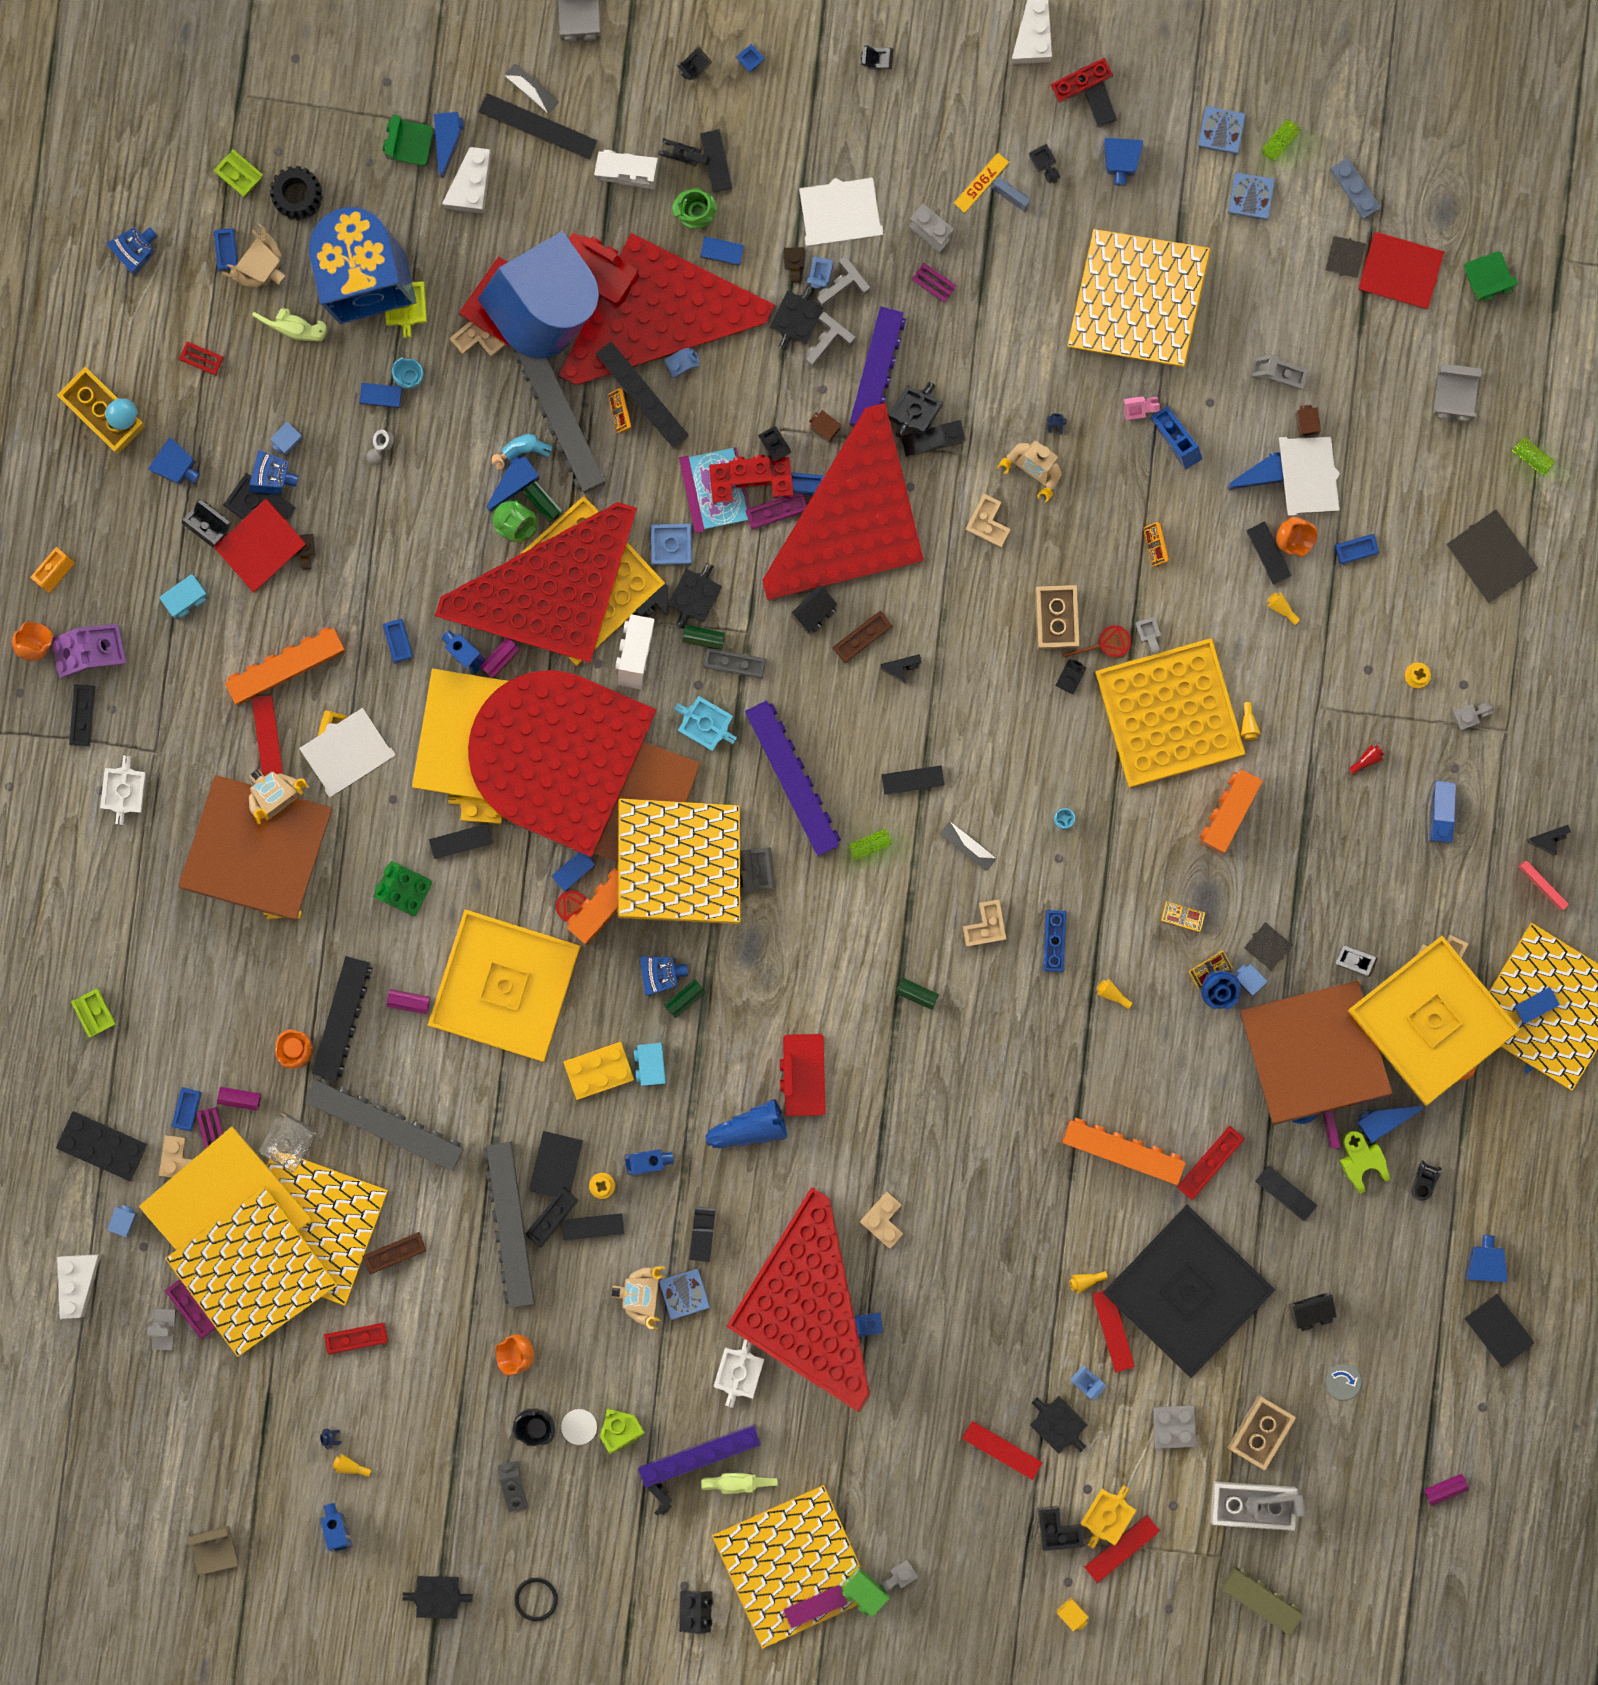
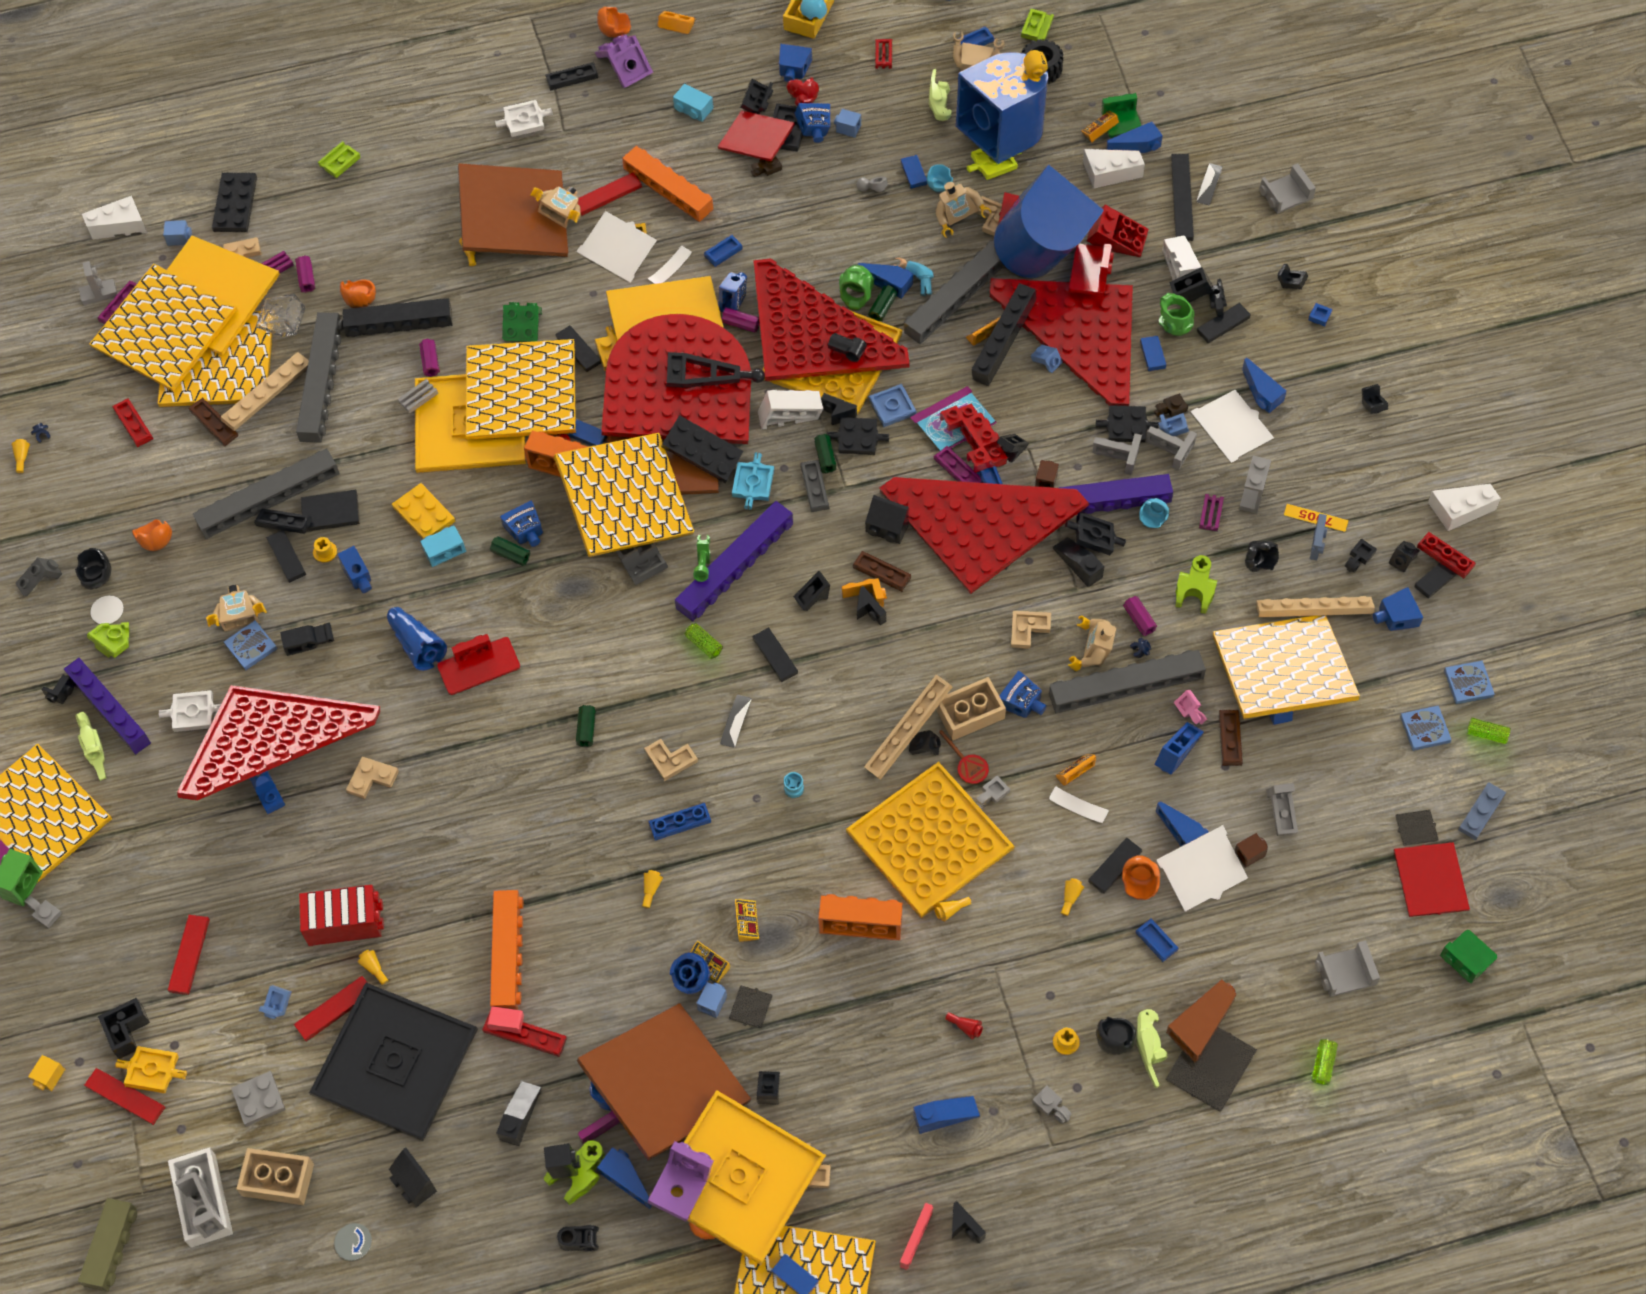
camera: 70 degrees right, 25 degrees down
(186, 1109) = (289, 244): blue tile -> none
(226, 470) = (803, 92): none -> red hair
(350, 218) = (1035, 63): none -> yellow head
(380, 1186) = (265, 391): none -> tan plate
(394, 705) = (671, 266): none -> white sticker
(409, 169) = (1100, 126): none -> light orange slope
(450, 1013) = (416, 394): none -> light grey tile
(455, 370) = (957, 204): none -> tan torso
(492, 919) = (520, 389): none -> yellow tile
(551, 751) = (677, 368): none -> black plate
(560, 212) = (1119, 231): none -> red slope
(598, 560) = (851, 348): none -> black piece
(652, 761) = (702, 449): none -> black plate
(666, 175) = (1192, 285): none -> black brick
(774, 807) = (701, 571): none -> bright green bar
(814, 161) = (1265, 390): none -> blue slope
(863, 716) = (812, 591): none -> black slope
(889, 651) = (871, 585): none -> light orange bracket
(915, 341) = (1154, 513): none -> medium azure hair
(1005, 258) = (1262, 555): none -> black hair
(1009, 336) = (1196, 583): none -> lime piece
(1021, 408) = (1140, 615): none -> magenta axle
(1028, 1294) = (341, 915): none -> red brick
(1055, 685) = (908, 727): none -> tan plate
(1058, 1424) = (228, 994): black plate -> none
(1061, 561) = (1022, 696): none -> blue torso
(1062, 119) = (1403, 556): none -> black bracket
(1082, 235) = (1315, 606): none -> tan plate
(1087, 454) = (1127, 681): none -> dark grey brick
(1184, 383) = (1230, 738): none -> reddish brown tile
(1193, 558) = (1078, 806): none -> white sticker
(1195, 1175) = (505, 1020): none -> coral piece
(1362, 1171) = (561, 1161): none -> black brick
(1429, 1063) = (686, 1171): none -> medium lavender bracket
(1436, 629) = (1115, 1035): none -> black piece
(1452, 602) = (1149, 1042): none -> yellowish green animal
(1453, 546) = (1200, 1021): none -> dark orange slope

